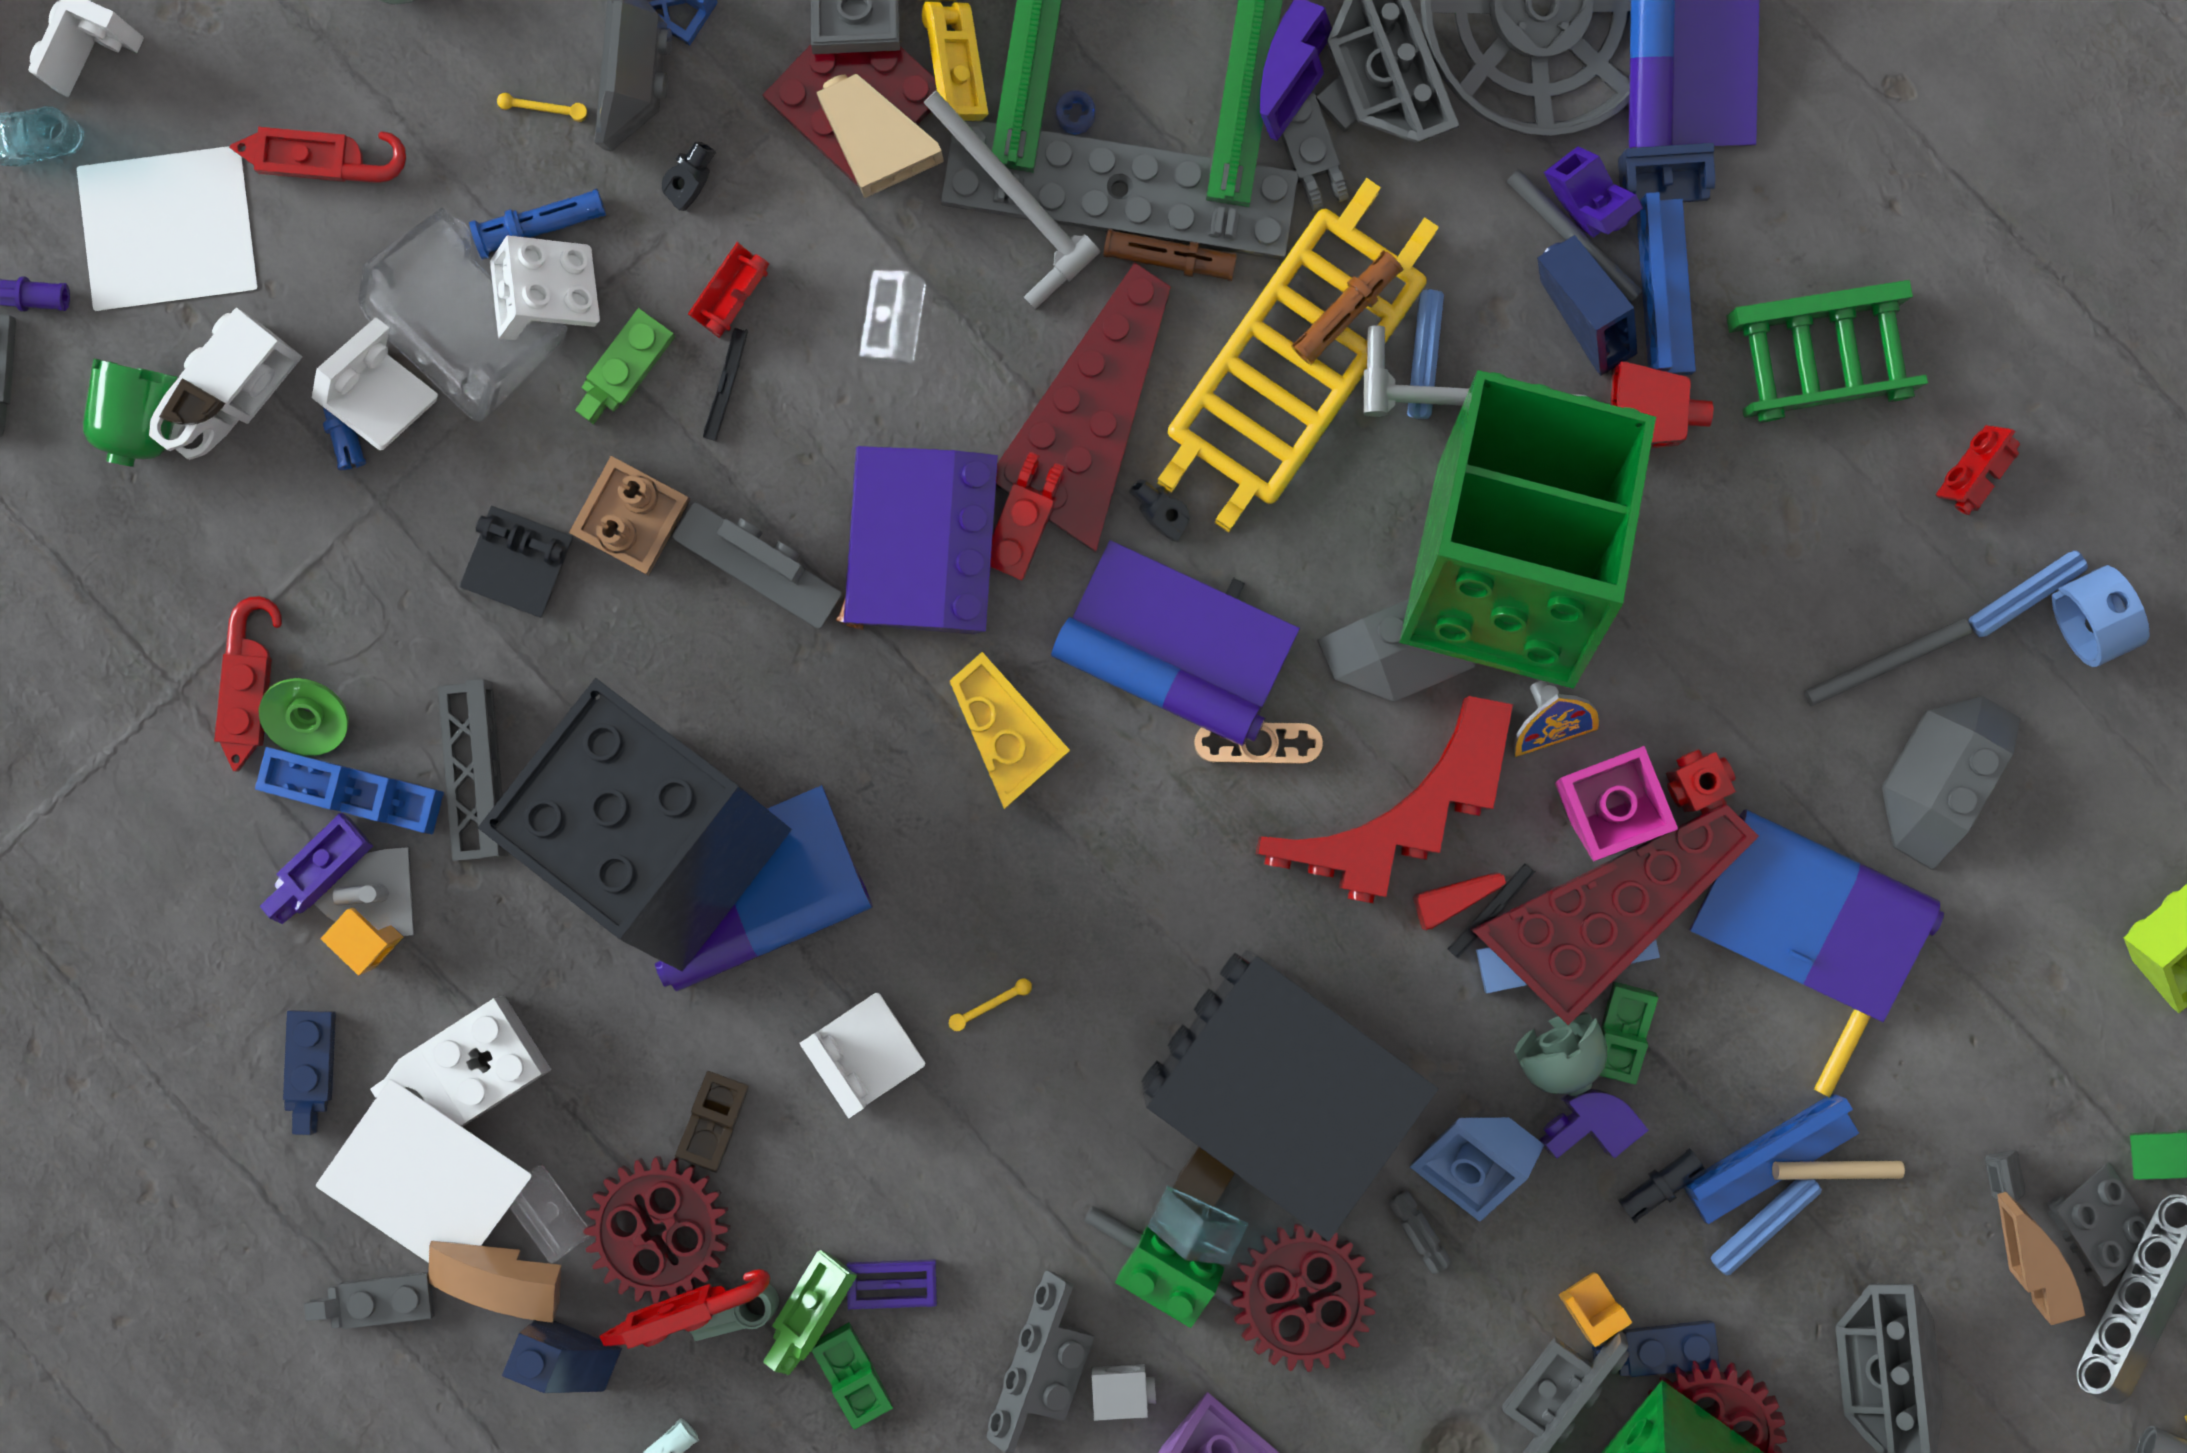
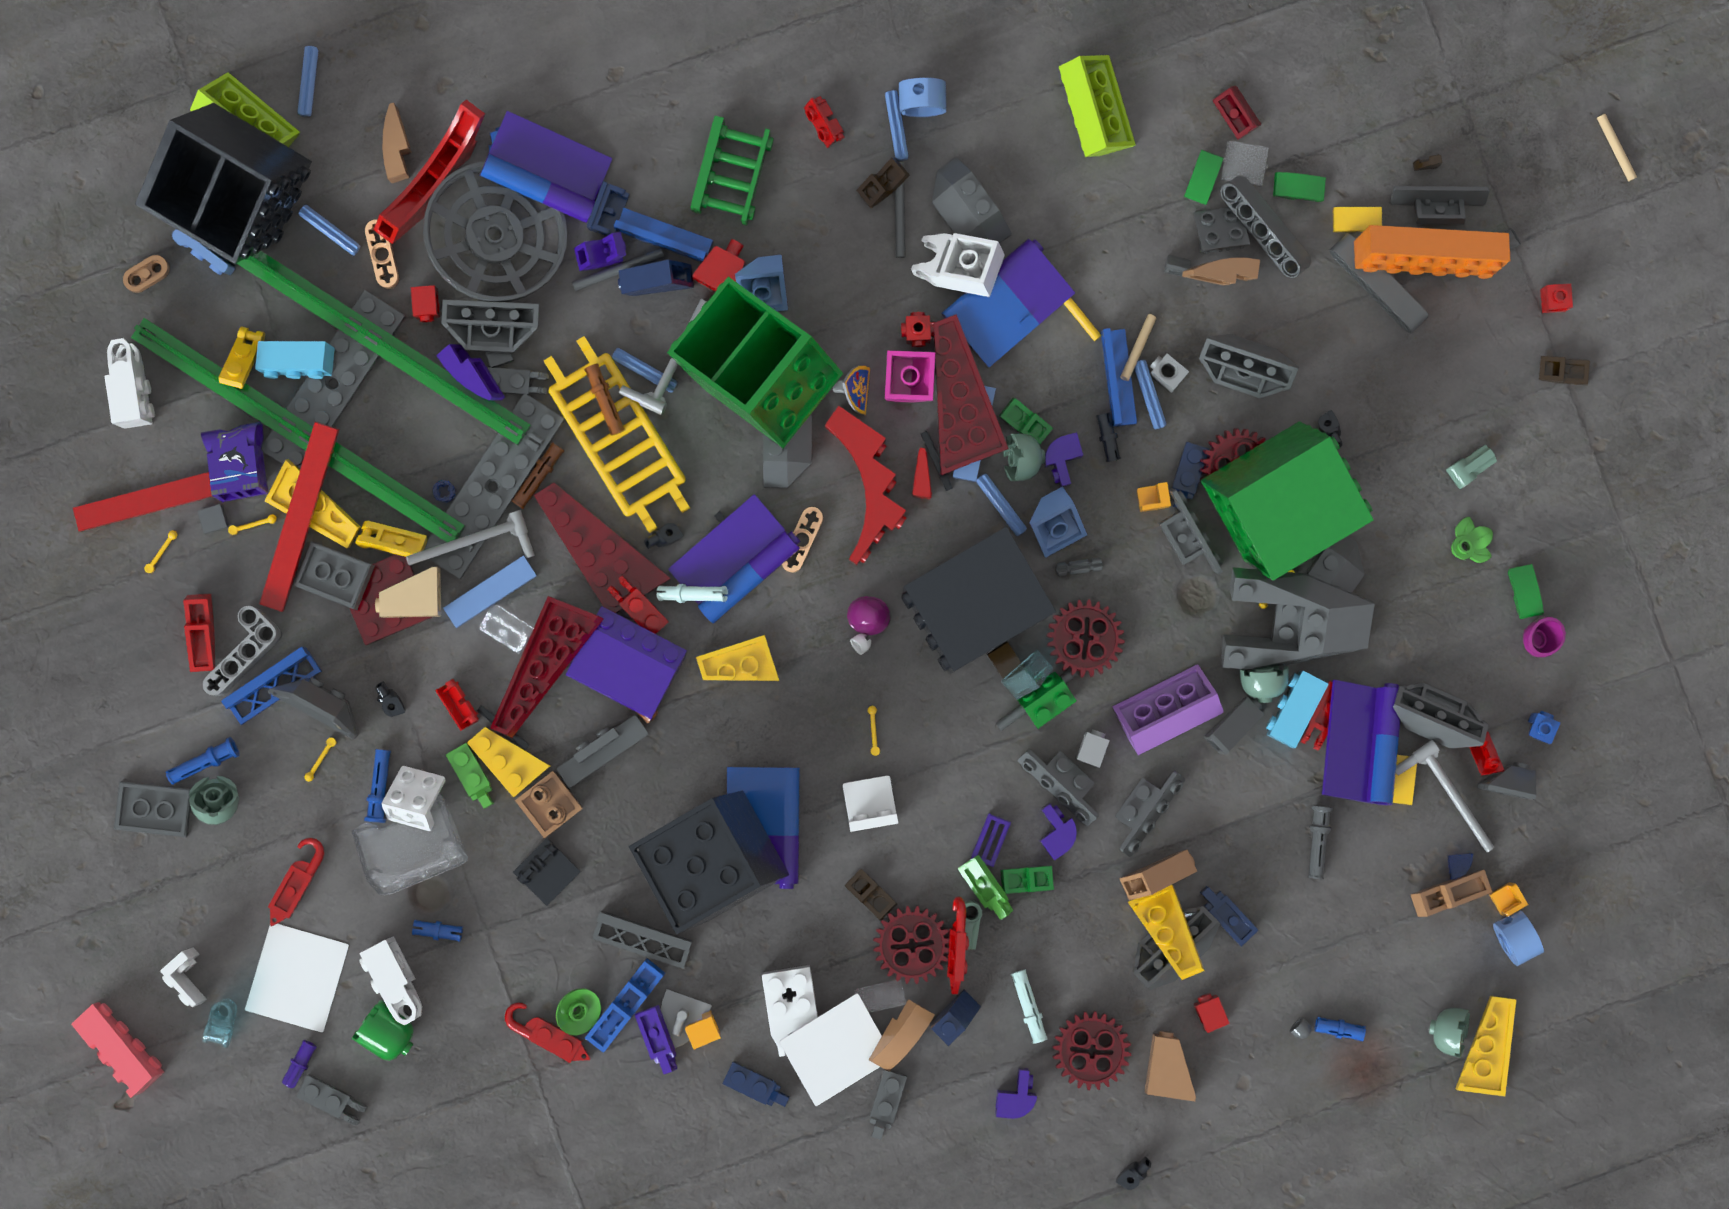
camera: 65 degrees left, 0 degrees up
(190, 405) = (399, 996): dark brown tile -> none
(371, 388) = (428, 906): white bracket -> none
(672, 414) = (508, 762): none -> yellow wing
(889, 403) = (550, 649): none -> dark red wing
(941, 262) = (490, 591): none -> medium blue tile
(952, 1406) = (1062, 837): none -> dark purple brick
(1079, 582) = (684, 593): none -> light aqua pin
(1126, 918) = (860, 643): none -> white hinge
(1180, 911) = (868, 615): none -> magenta hat
(1467, 1052) = (1001, 504): none -> medium blue axle
(1673, 489) = (765, 280): none -> medium blue slope
(1830, 1256) = (1179, 372): none -> light grey brick
(1849, 806) = (961, 263): none -> white brick
(1916, 613) = (882, 184): none -> dark brown slope

